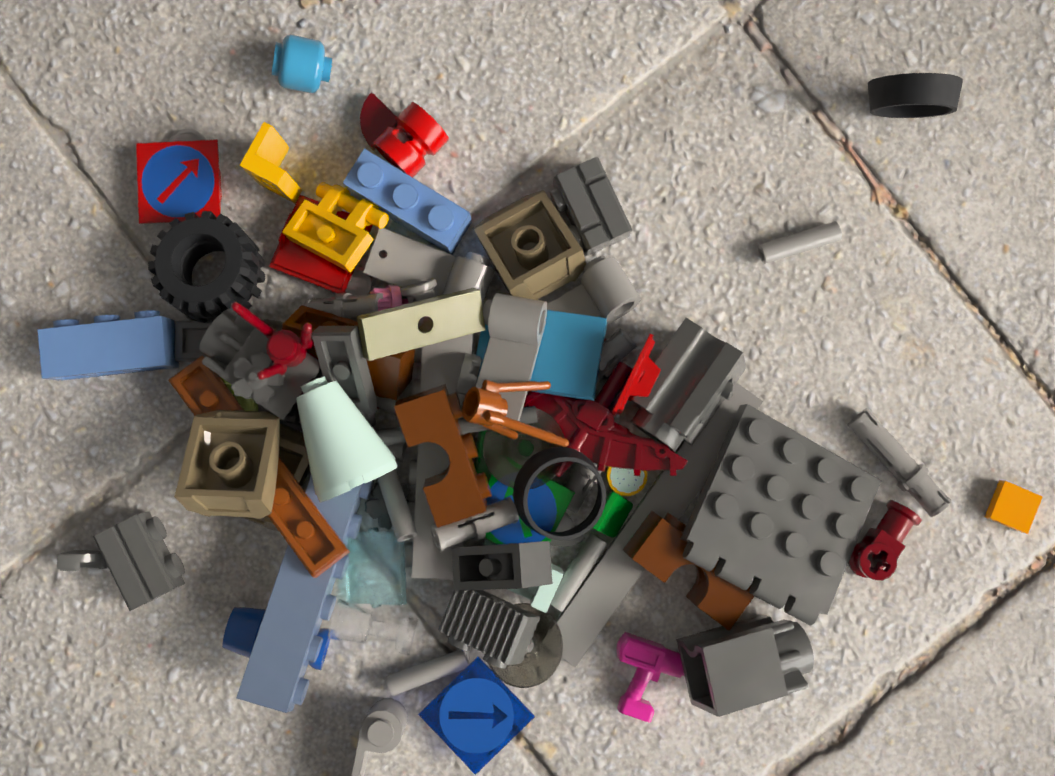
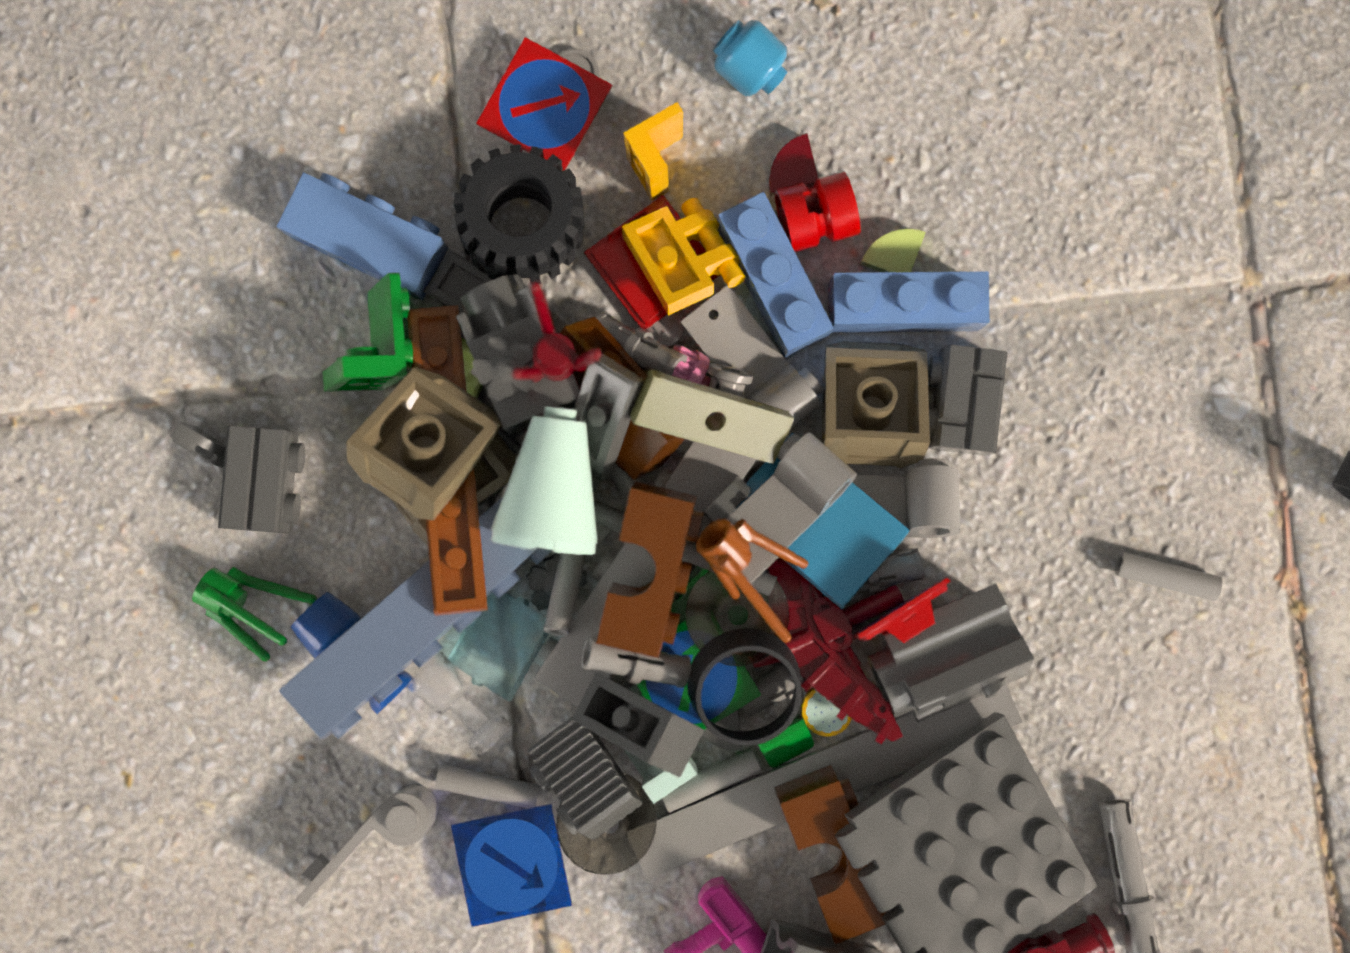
camera: 40 degrees right, 0 degrees up
(167, 656) = (224, 598): none -> green plant
(169, 433) = (390, 353): none -> green bracket
(481, 137) = (894, 251): none -> yellowish green tile
(510, 164) = (909, 302): none -> medium blue brick

